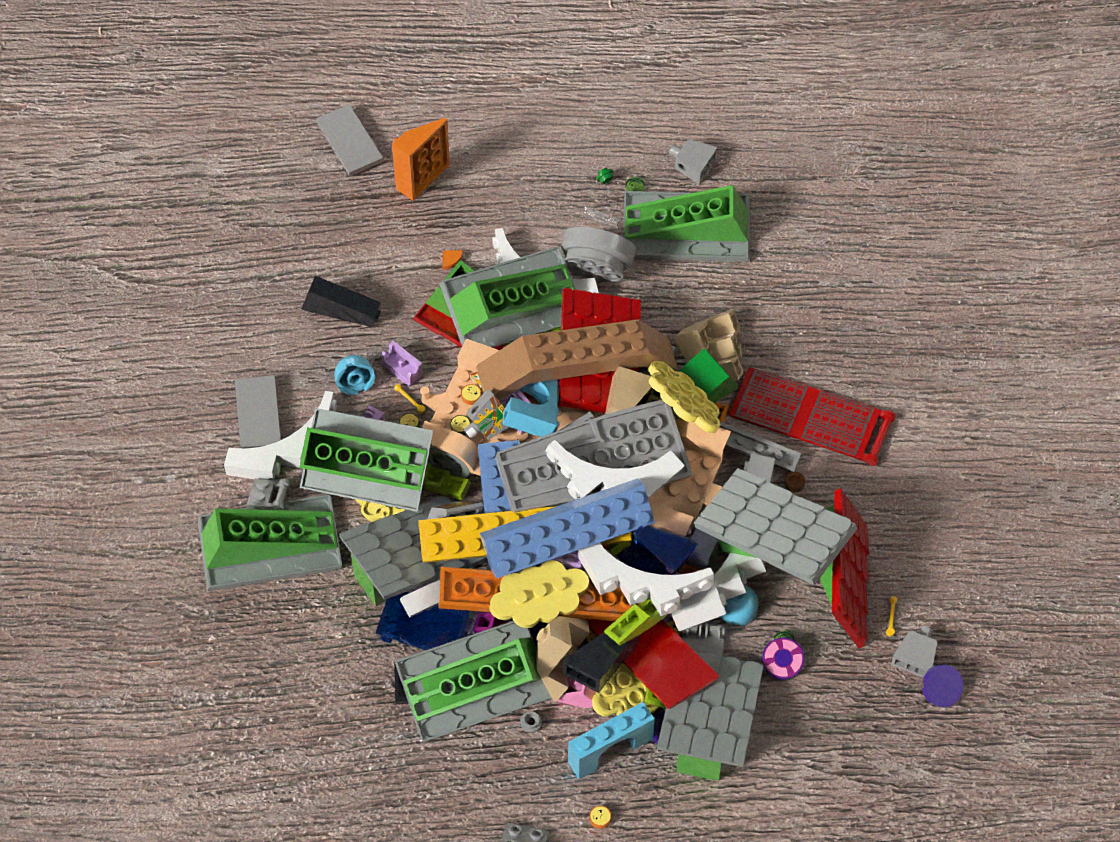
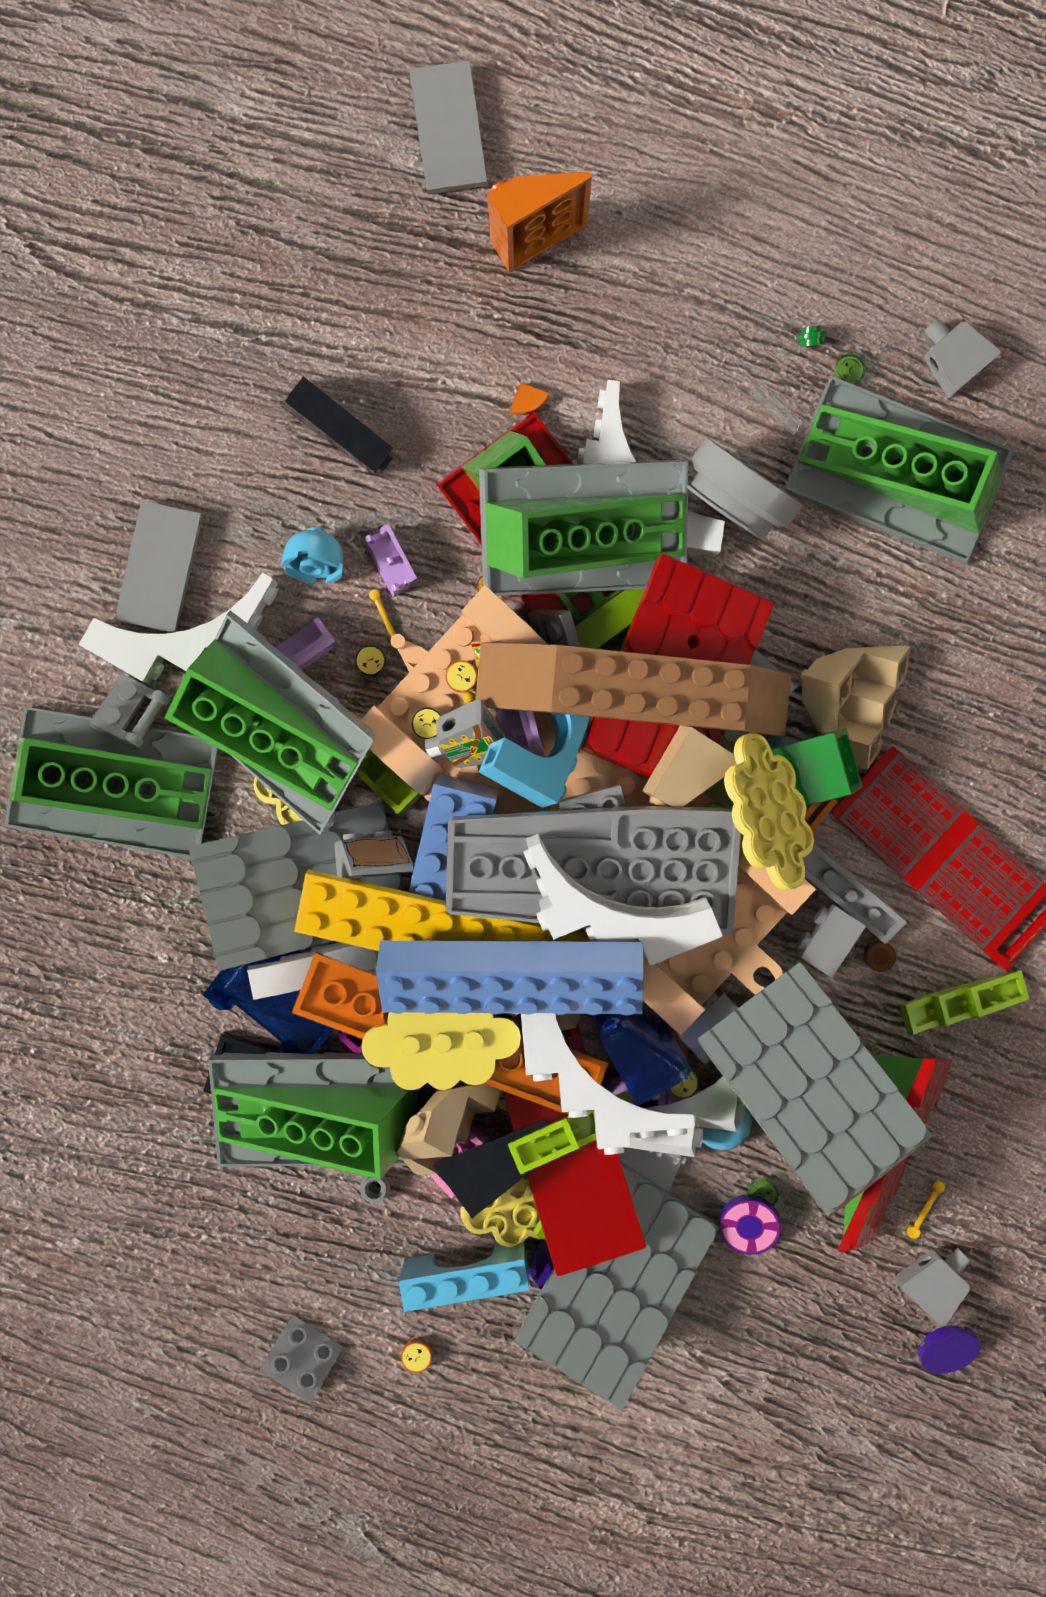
camera: 20 degrees right, 30 degrees up
(863, 484) = (964, 1001): none -> lime slope

